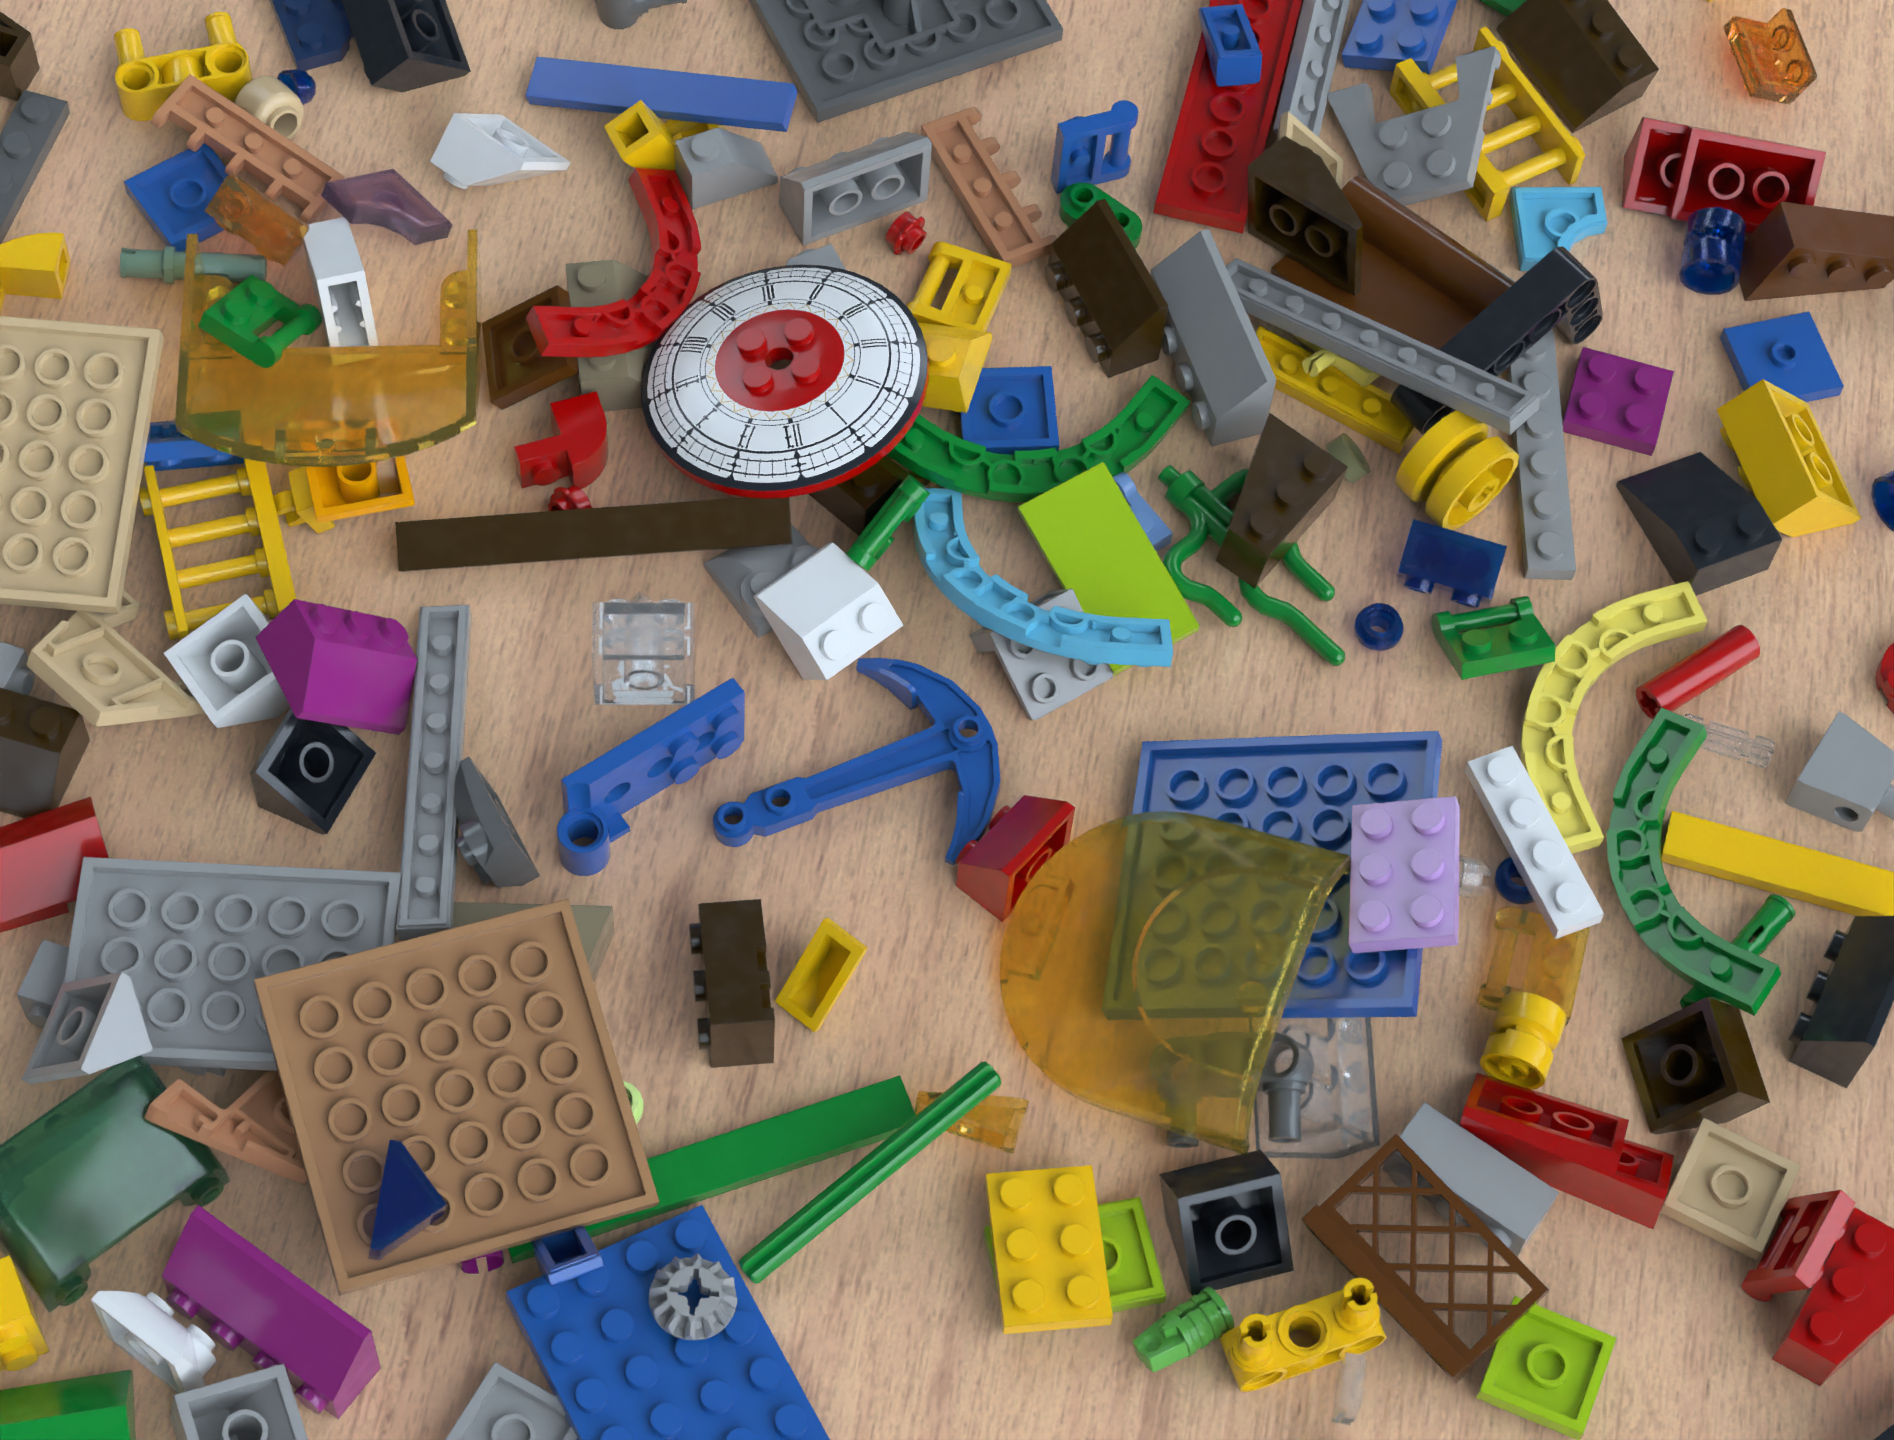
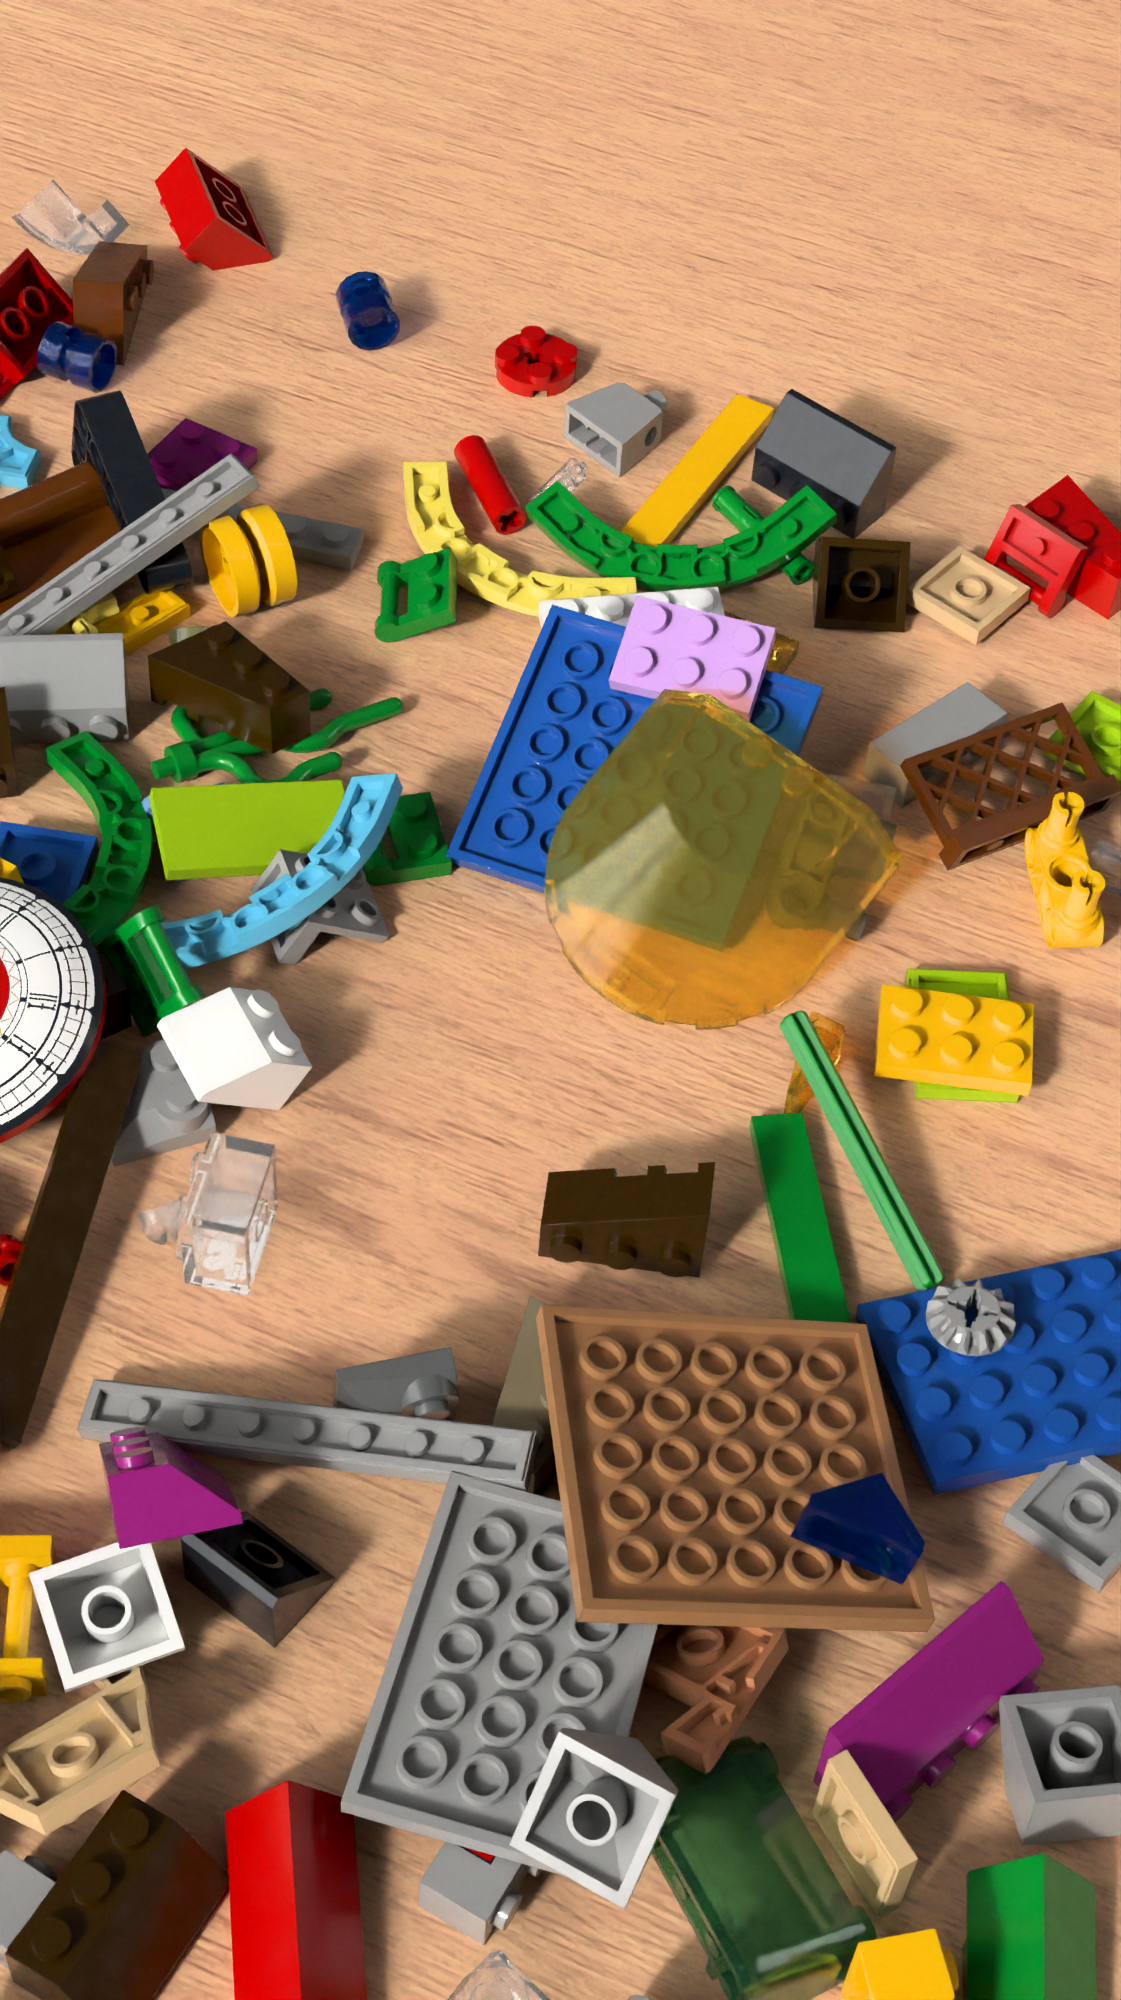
camera: 75 degrees left, 10 degrees down
(137, 1261) = (864, 1834): none -> tan tile
(156, 1340) = (953, 1826): white slope -> none
(566, 1255) = (914, 1393): blue slope -> none
(640, 769) = (352, 1208): blue hinge -> none
(821, 974) = (629, 1136): yellow slope -> none
(901, 762) = (405, 1014): blue piece -> none
(1013, 852) = (547, 963): red slope -> none
(1166, 713) = (416, 842): none -> green plate
(1184, 1330) = (1049, 972): bright green hinge -> none
(1227, 1221) = (943, 909): black slope -> none
(1381, 616) = (374, 668): clear blue plate -> none
(1450, 563) = (329, 602): clear blue bracket -> none
(1523, 1039) = (808, 662): yellow wheel -> none
(1570, 1147) = (914, 674): red slope -> none
(1701, 522) = (343, 442): black slope -> none
(1784, 353) = (199, 358): blue plate -> none
(1786, 460) = (306, 377): yellow slope -> none

